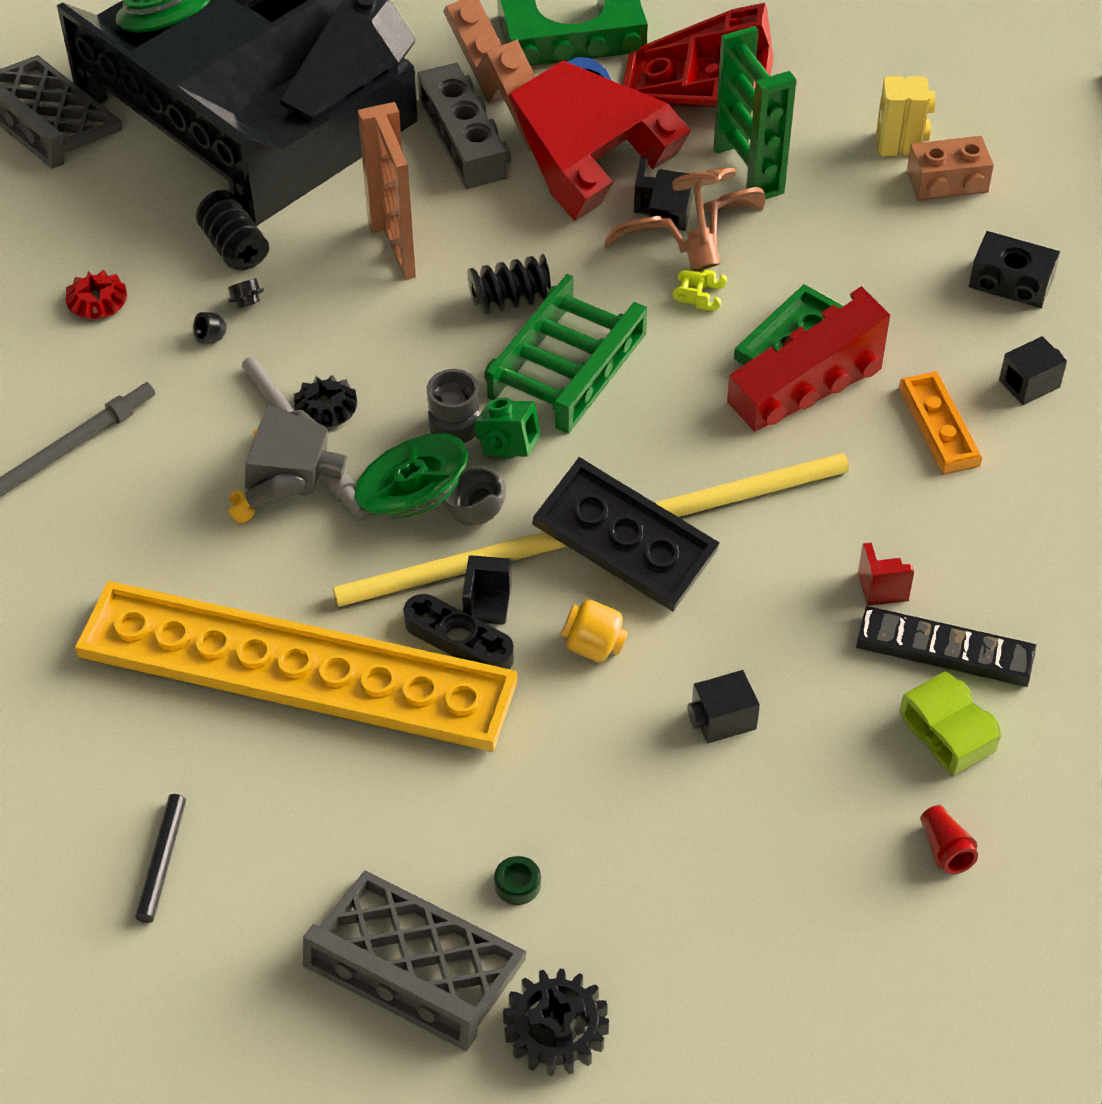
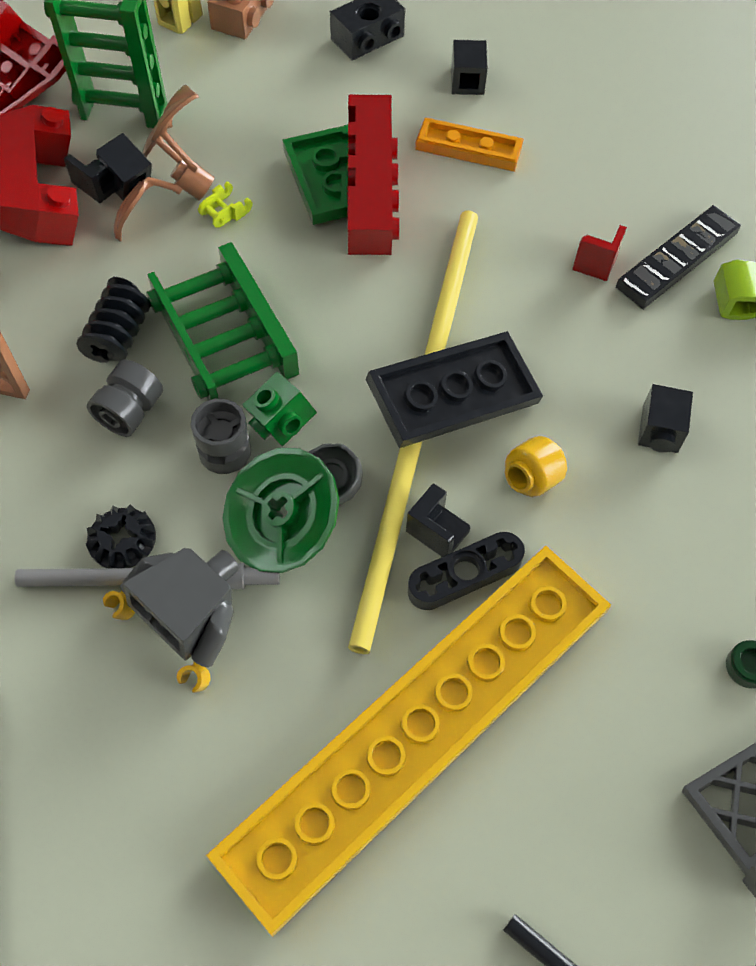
camera: 60 degrees left, 10 degrees up
(443, 330) = (124, 399): none -> dark grey wheel

